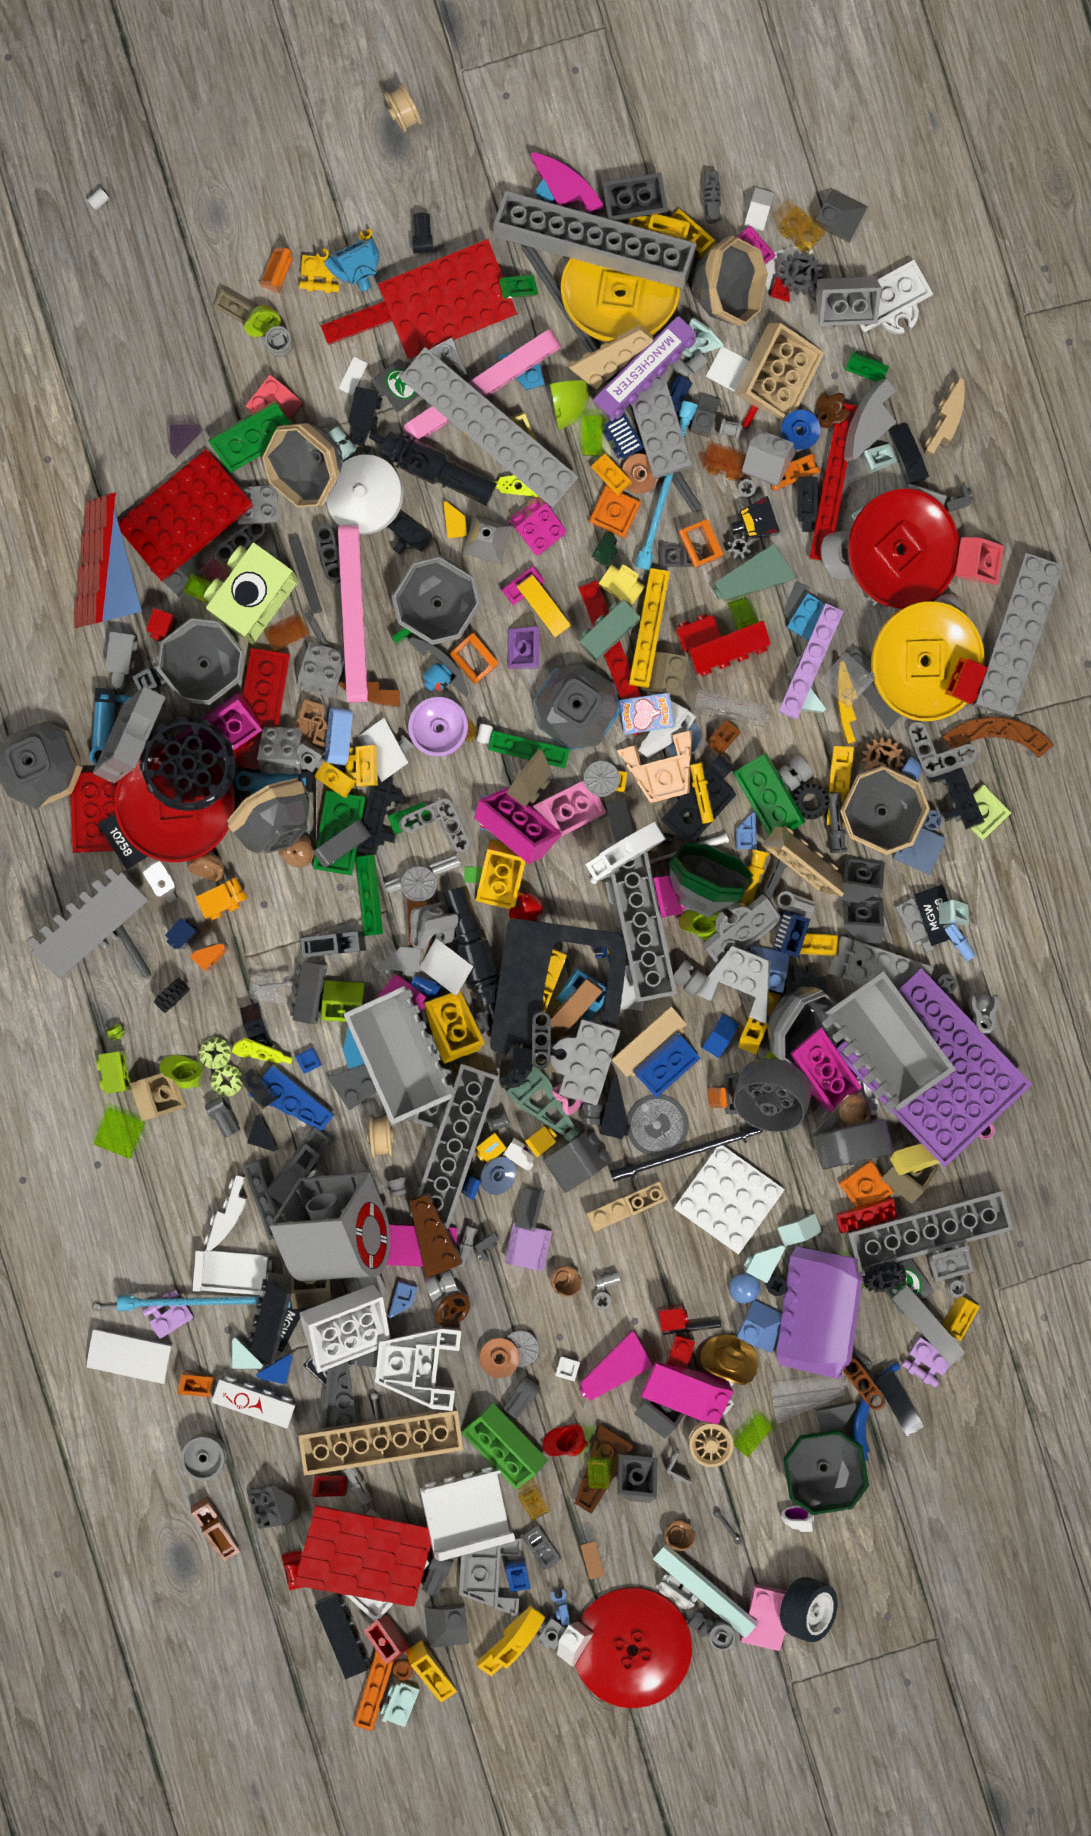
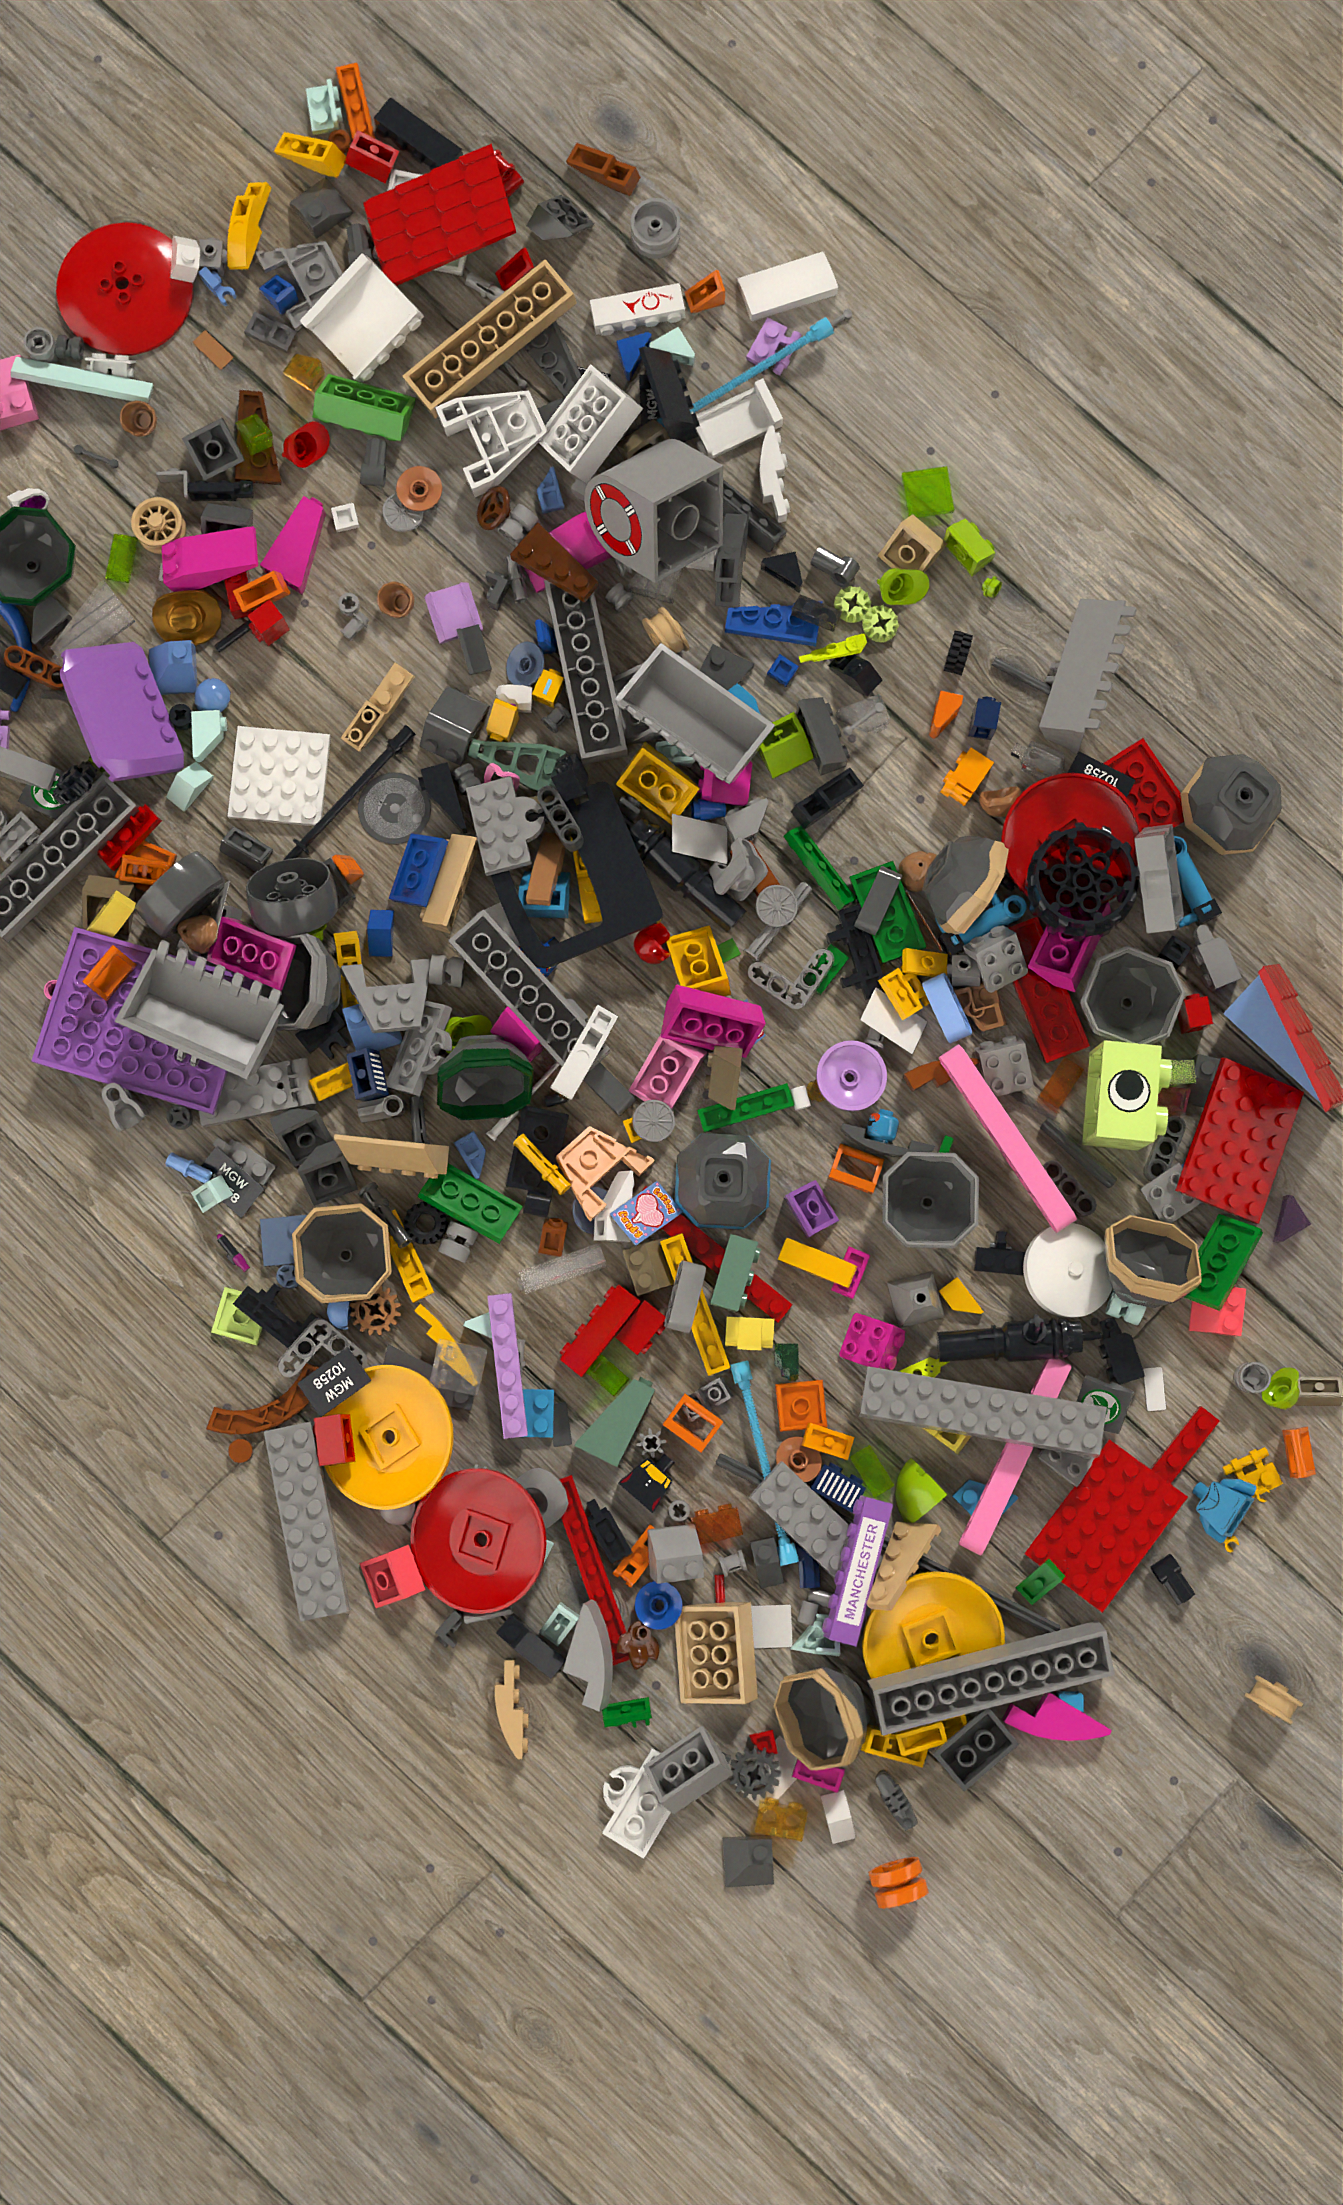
camera: 145 degrees right, 5 degrees down
(648, 1443) = (220, 491): none -> black hinge
(654, 635) = (685, 1296): none -> light grey beam
(663, 1342) = (257, 592): none -> orange slope
(744, 137) = (898, 1882): none -> orange wheel
(757, 869) = (441, 1120): yellow pin -> none
(785, 1157) = (245, 849): none -> dark grey slope
(871, 1192) = (125, 876): none -> orange slope
(938, 1114) = (109, 973): none -> orange tile
(942, 723) = (334, 1382): none -> black sticker
(963, 861) = (232, 1253): none -> piece
(1037, 714) = (240, 1450): none -> dark orange tile

